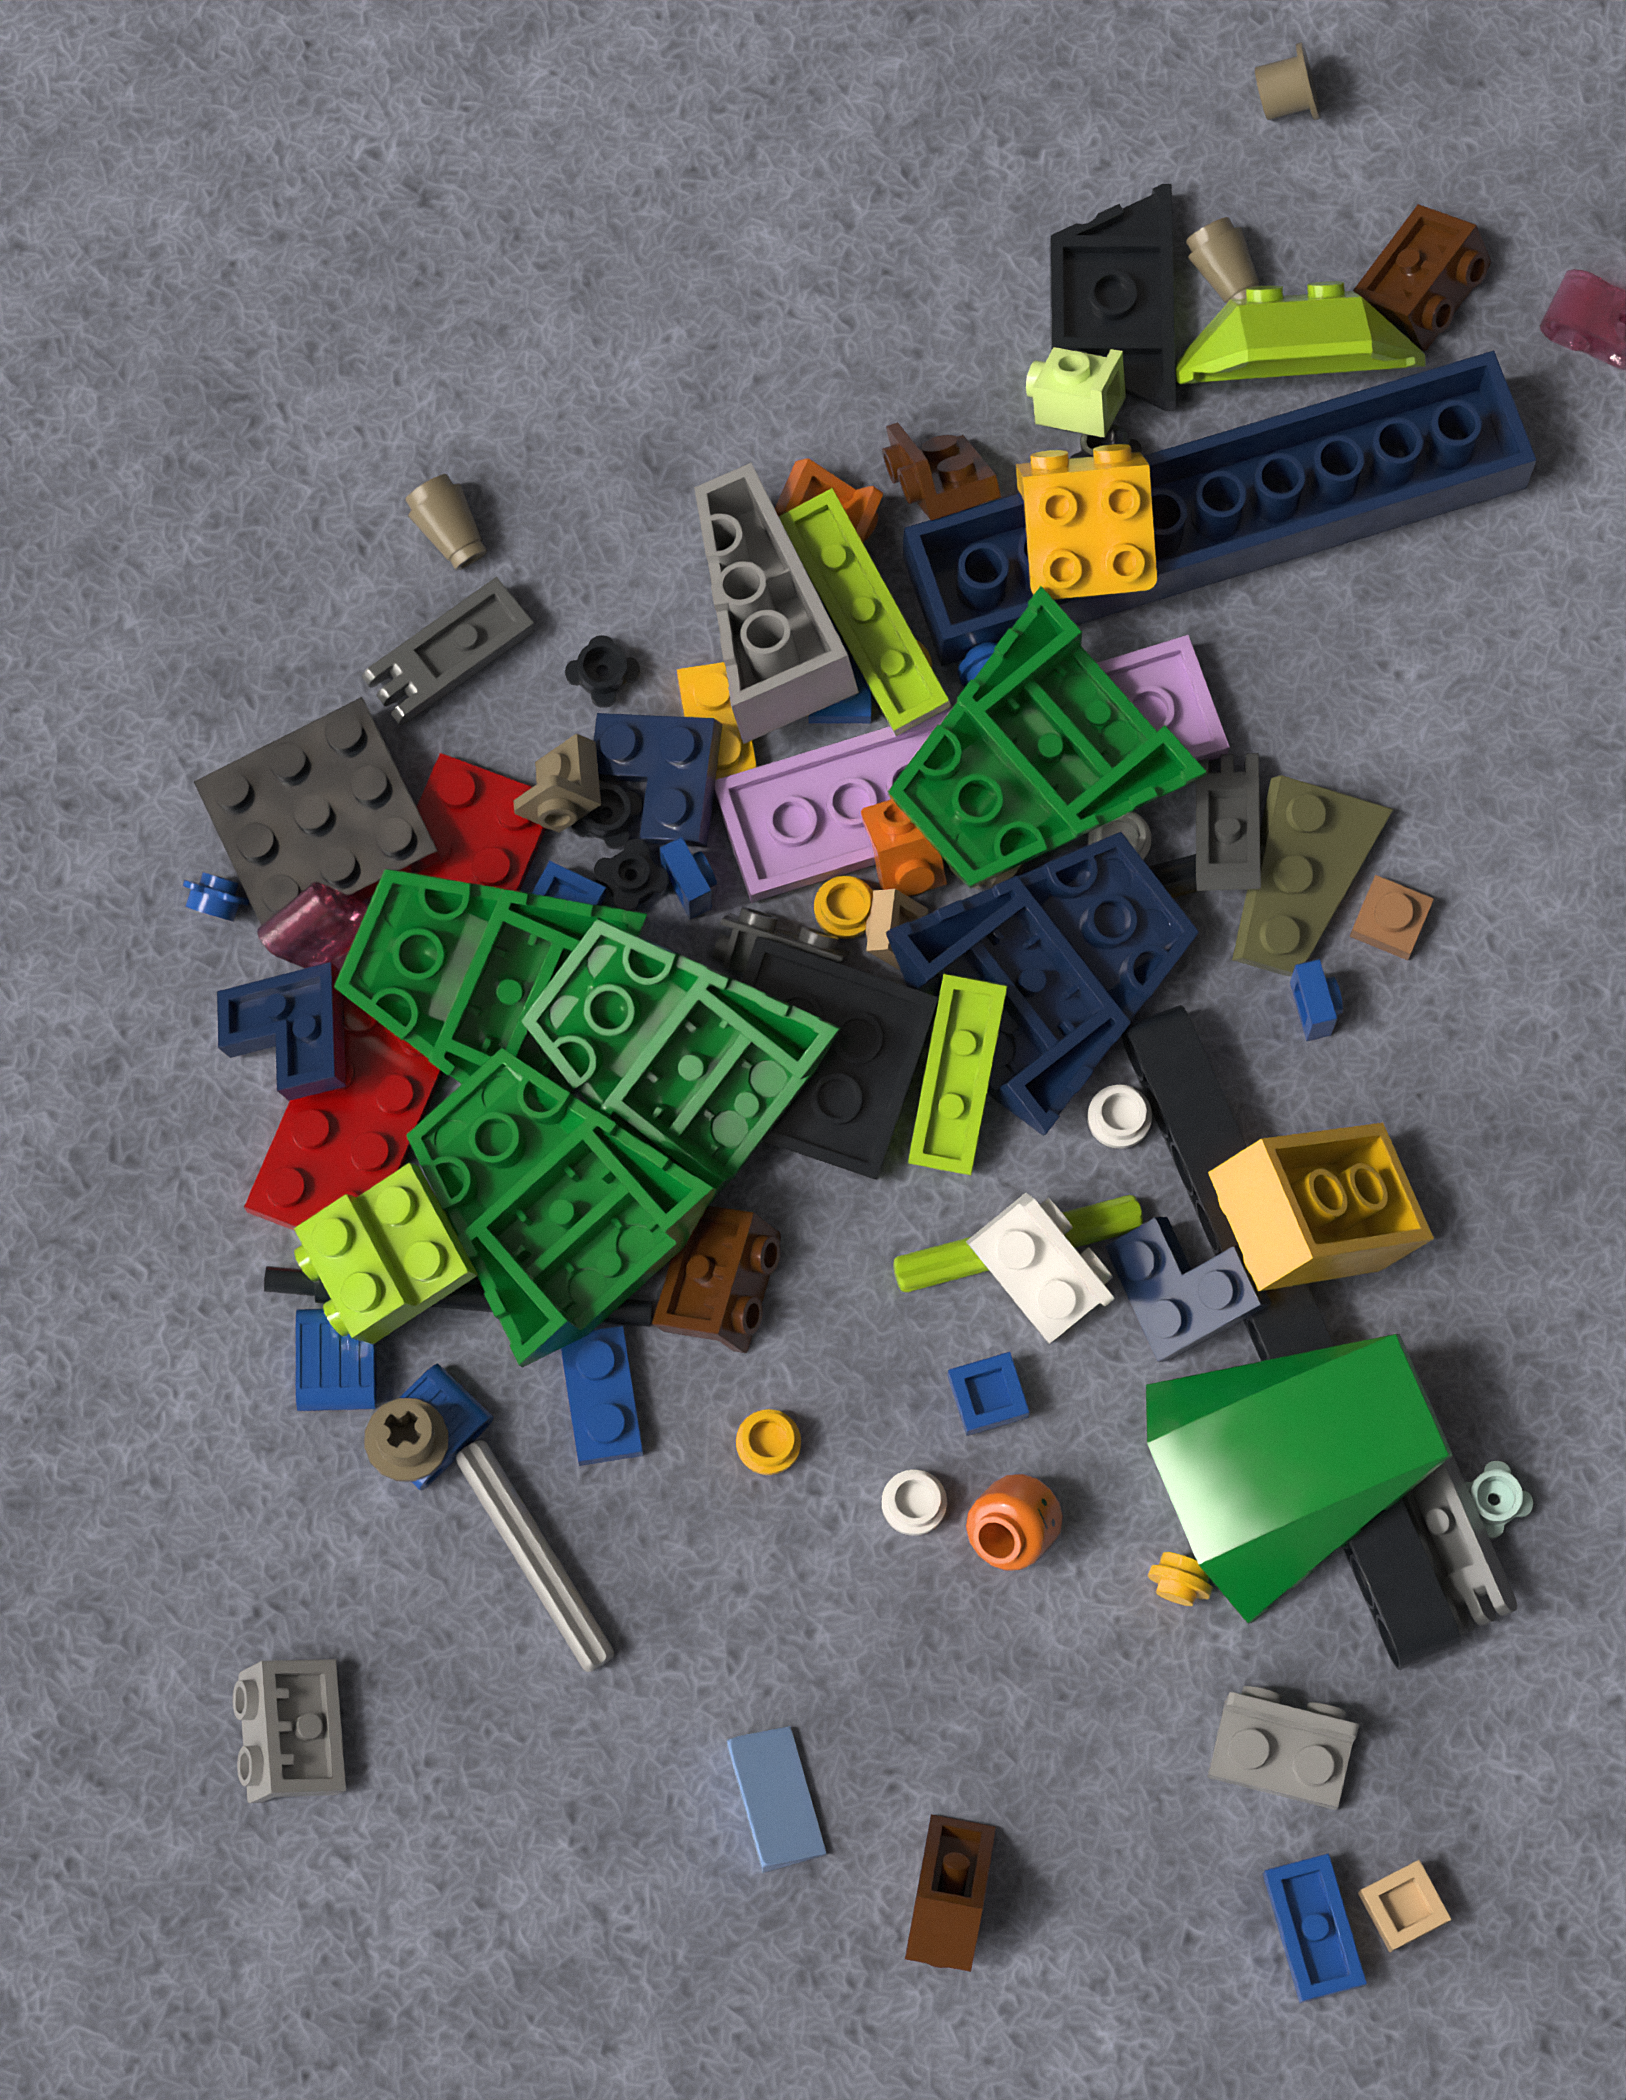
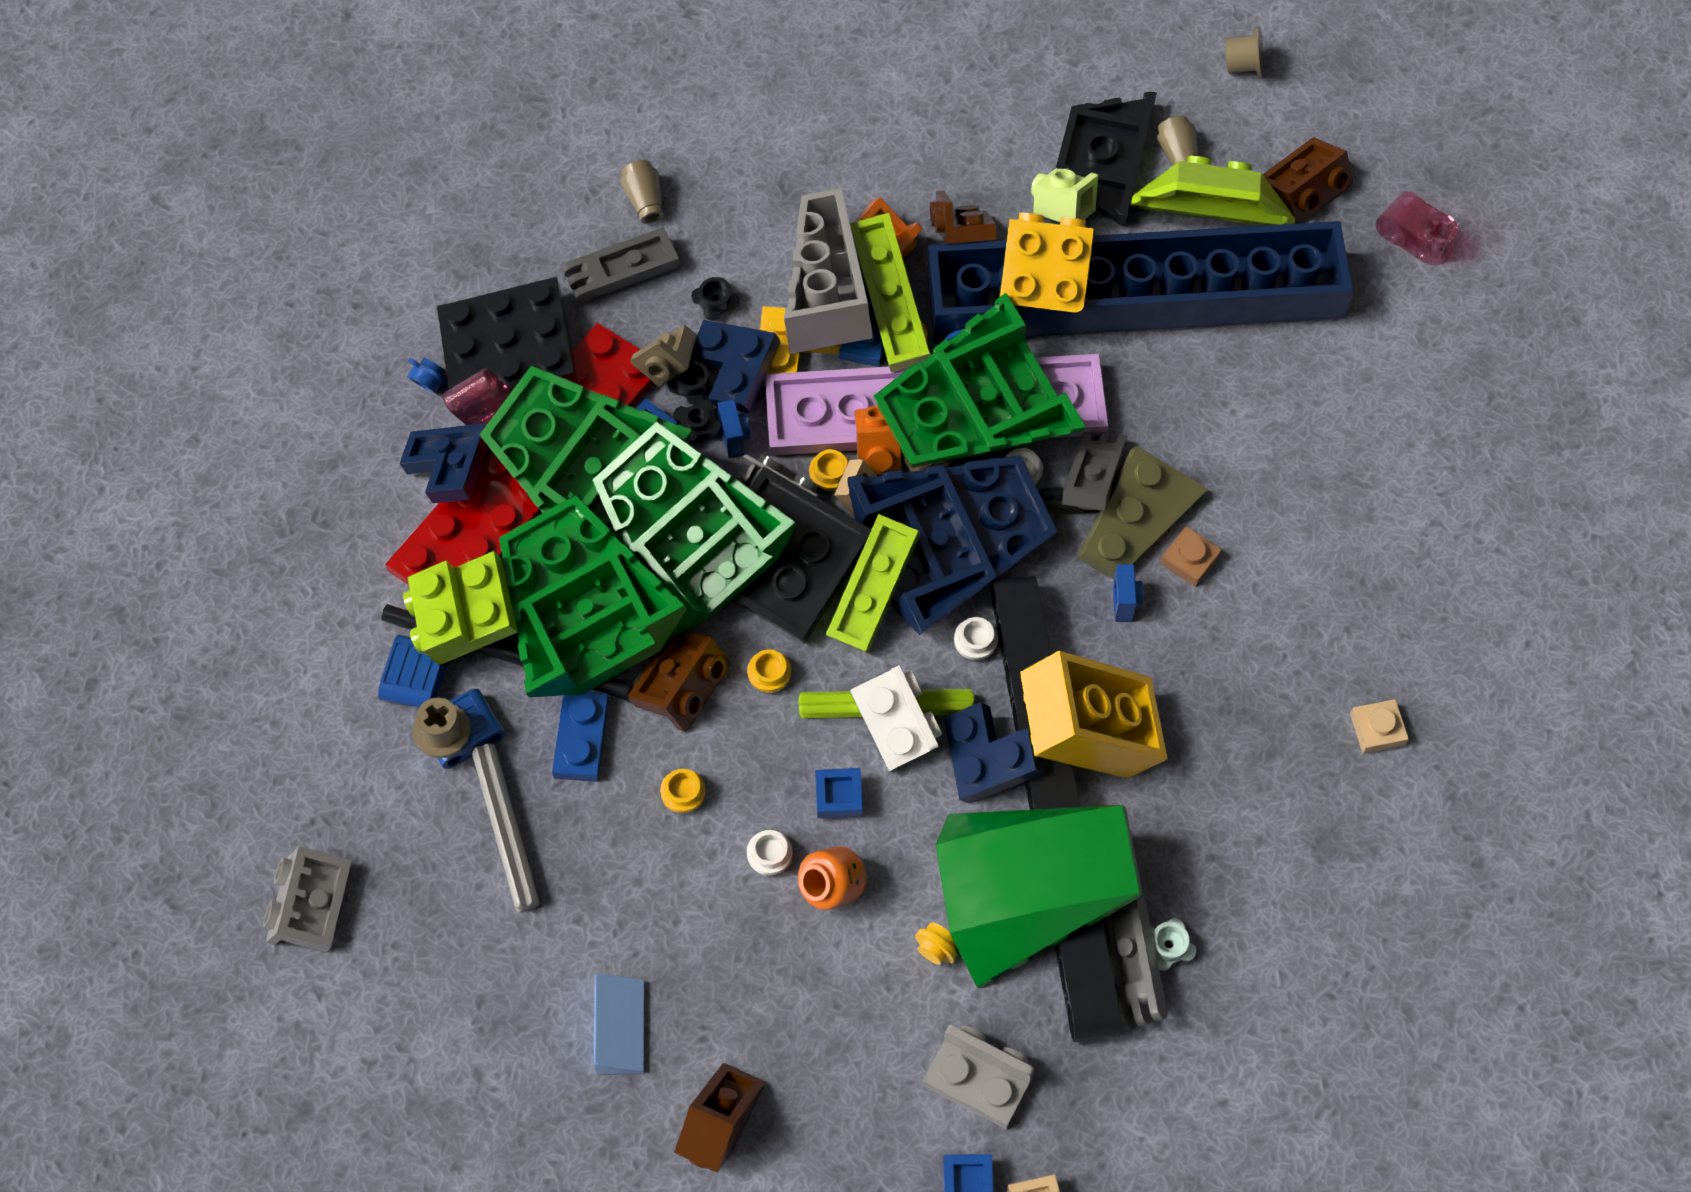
camera: 15 degrees right, 10 degrees down
(841, 1235) = (769, 671): none -> yellow plate

